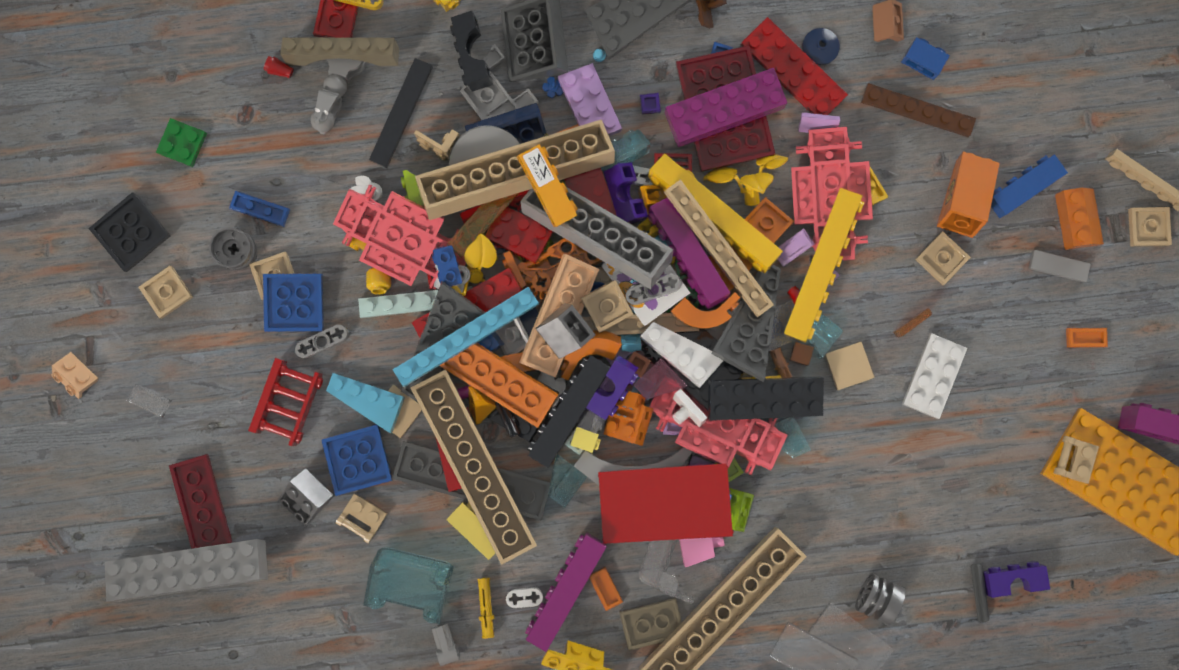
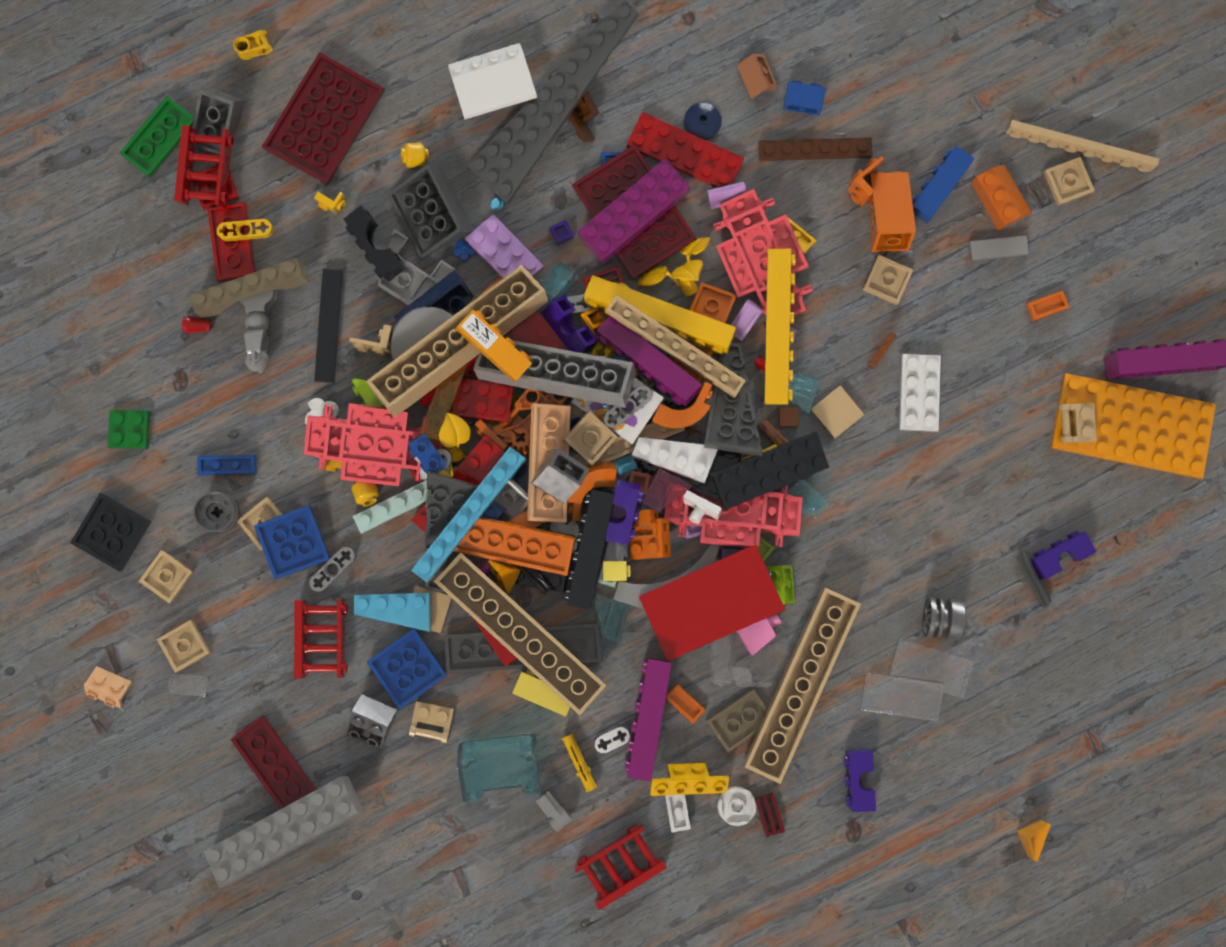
camera: 20 degrees left, 0 degrees up
(158, 362) = (183, 646): none -> tan tile
(948, 163) = (859, 188): none -> orange bracket

